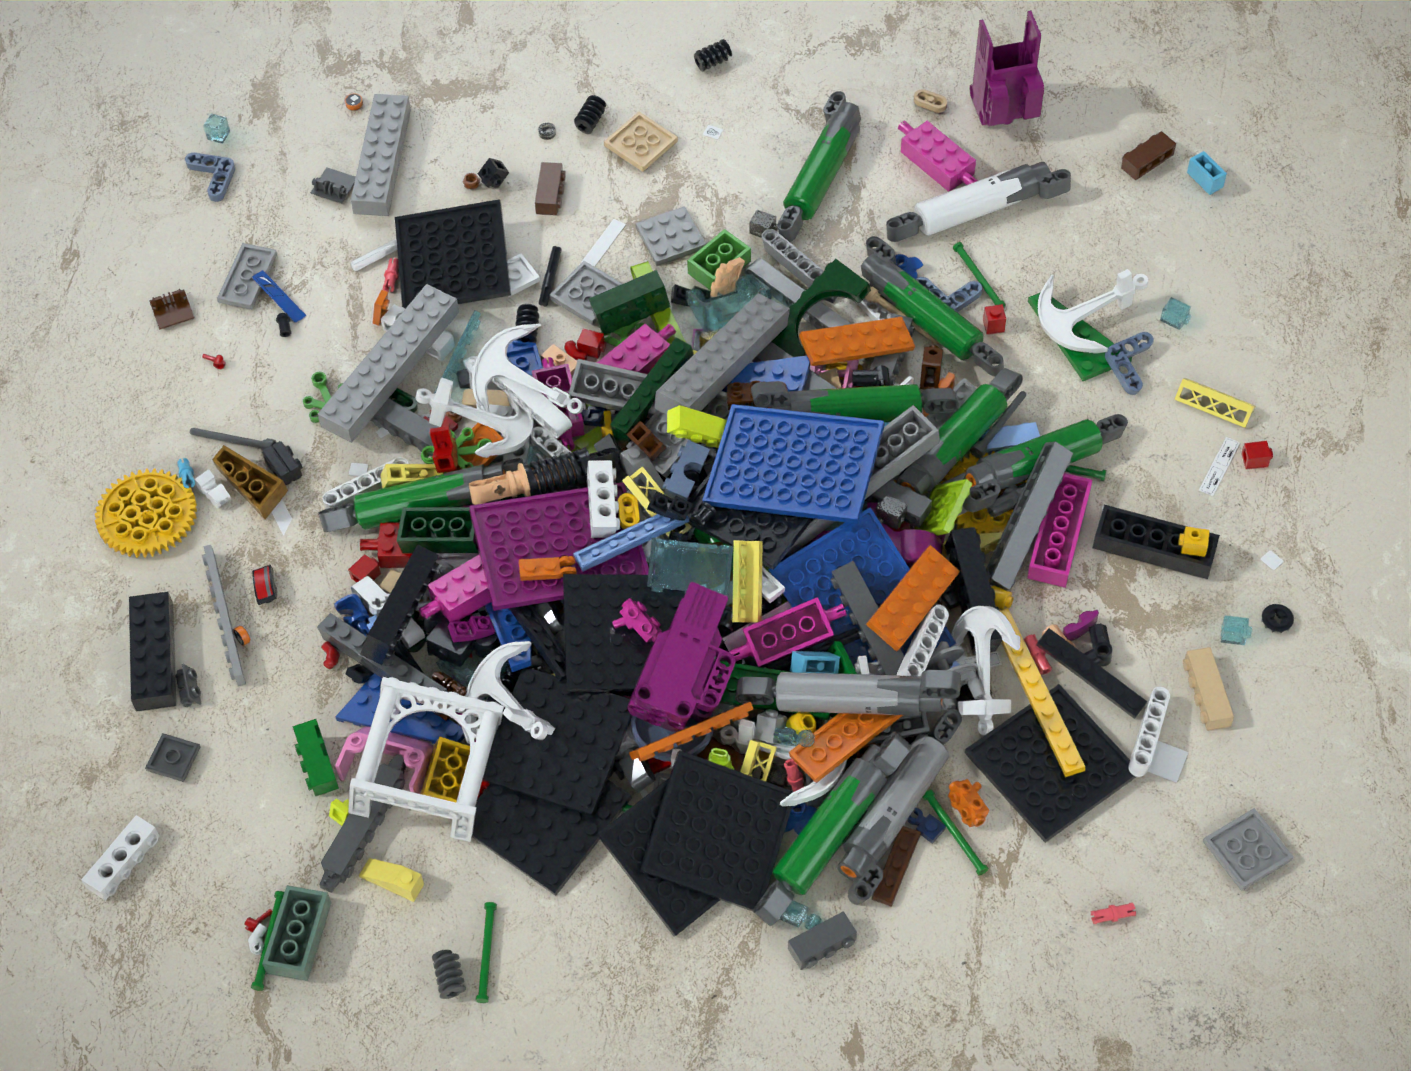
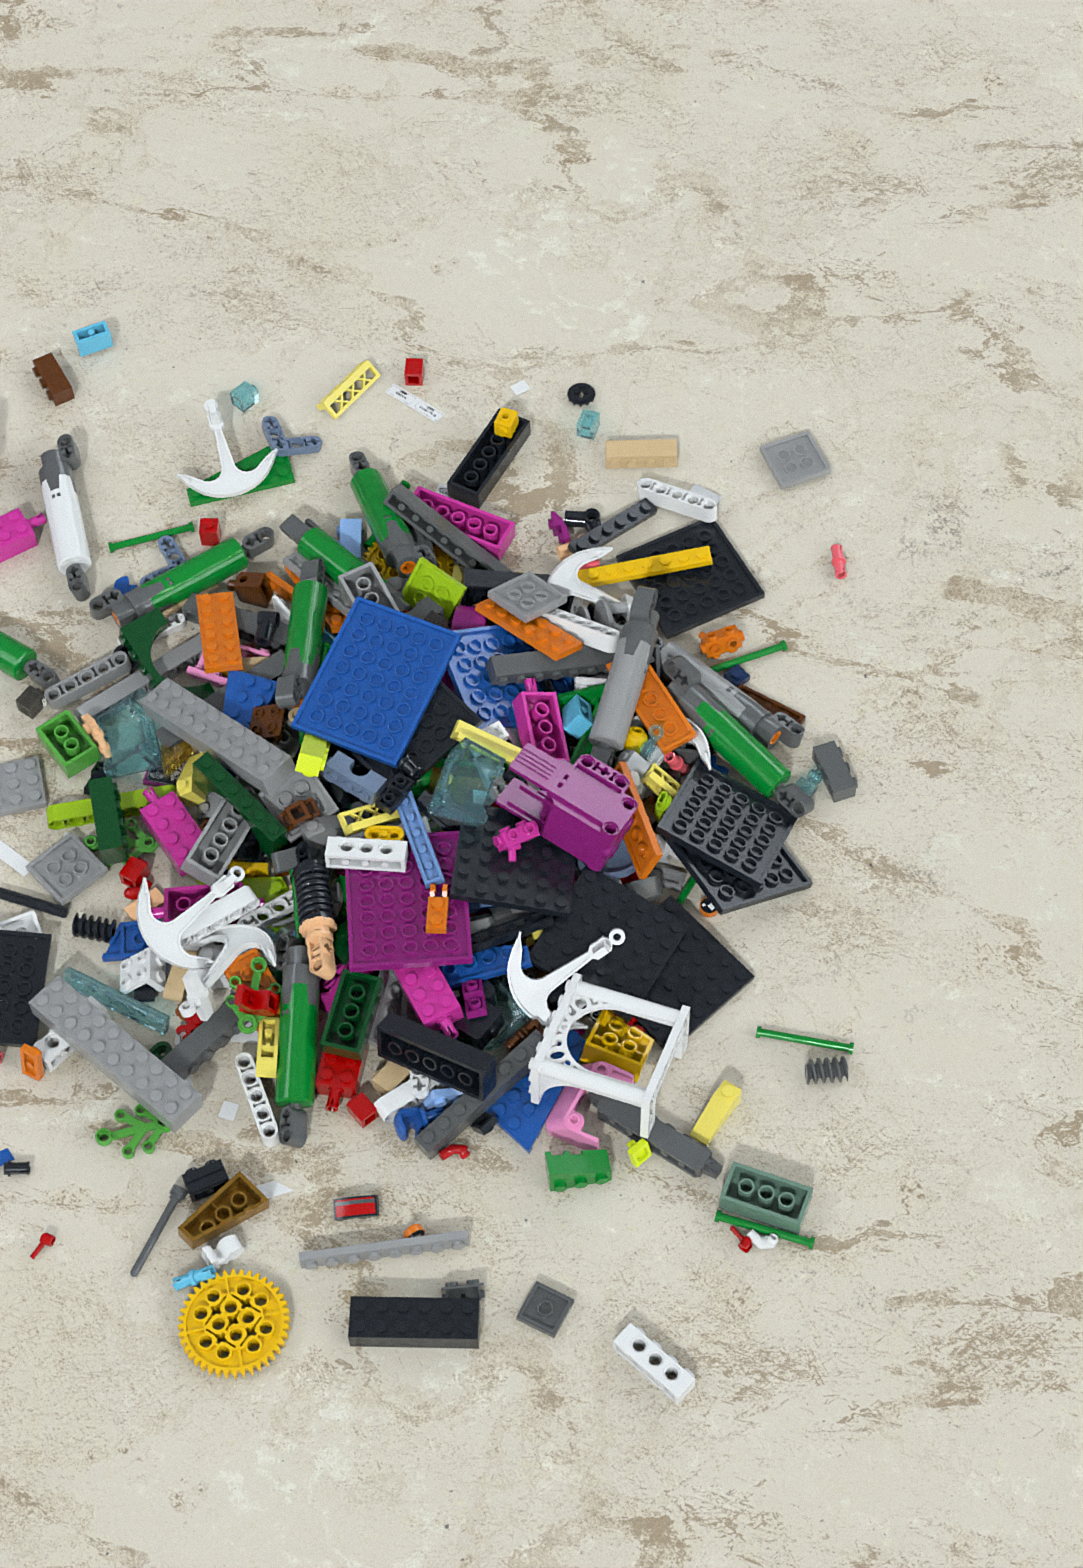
camera: 80 degrees left, 0 degrees up
(947, 587) = (527, 596): none -> light grey plate

